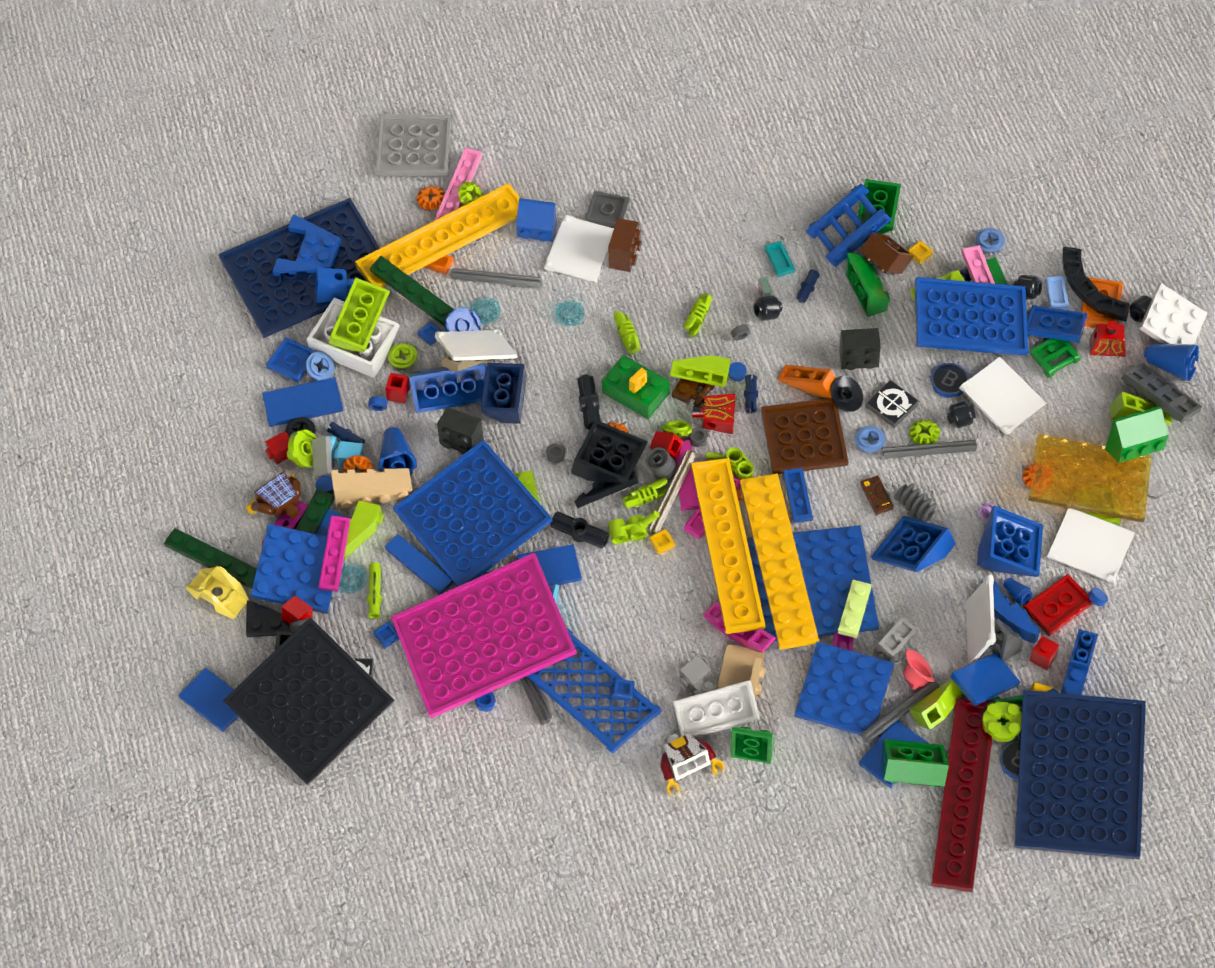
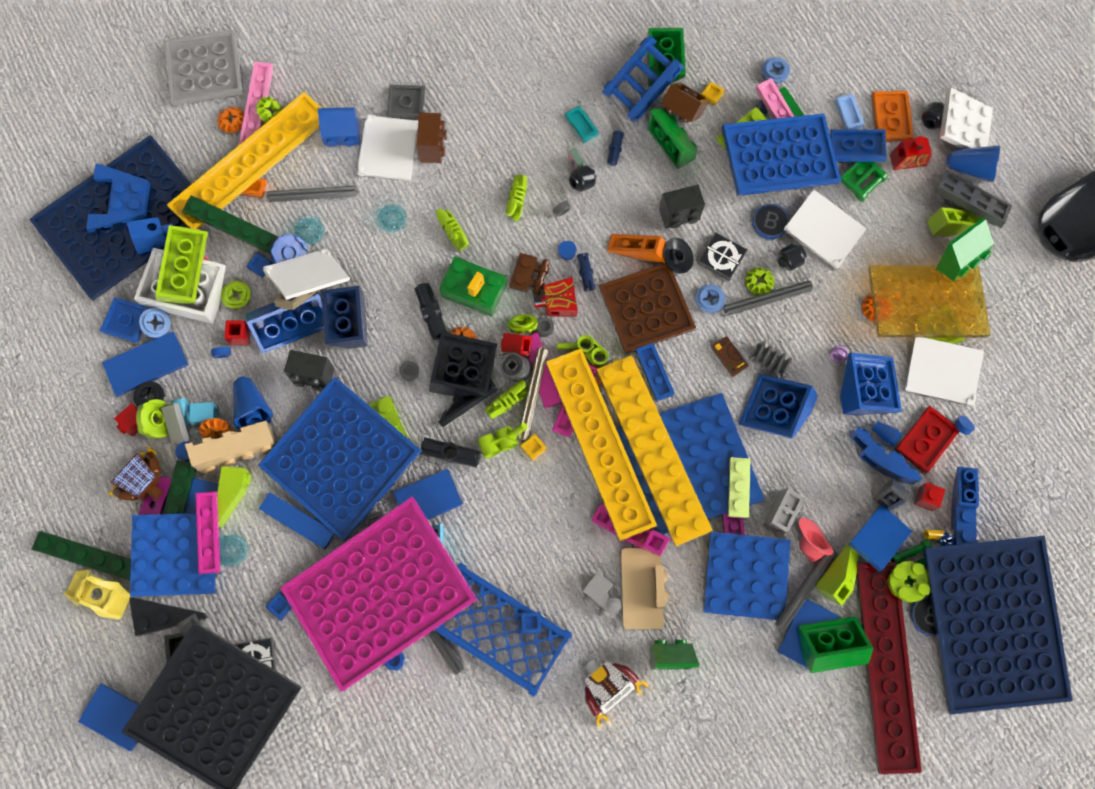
camera: 15 degrees left, 15 degrees up
(296, 610) = (182, 605): red brick -> none
(344, 434) = (195, 393): dark blue pin -> none
(374, 609) = (258, 569): lime pin -> none
(703, 369) = (538, 257): lime slope -> none
(717, 710) = (629, 629): white tile -> none
(980, 620) = (866, 479): white piece -> none
(1032, 285) = (825, 107): black head -> none
(1087, 290) = (878, 105): black tile -> none

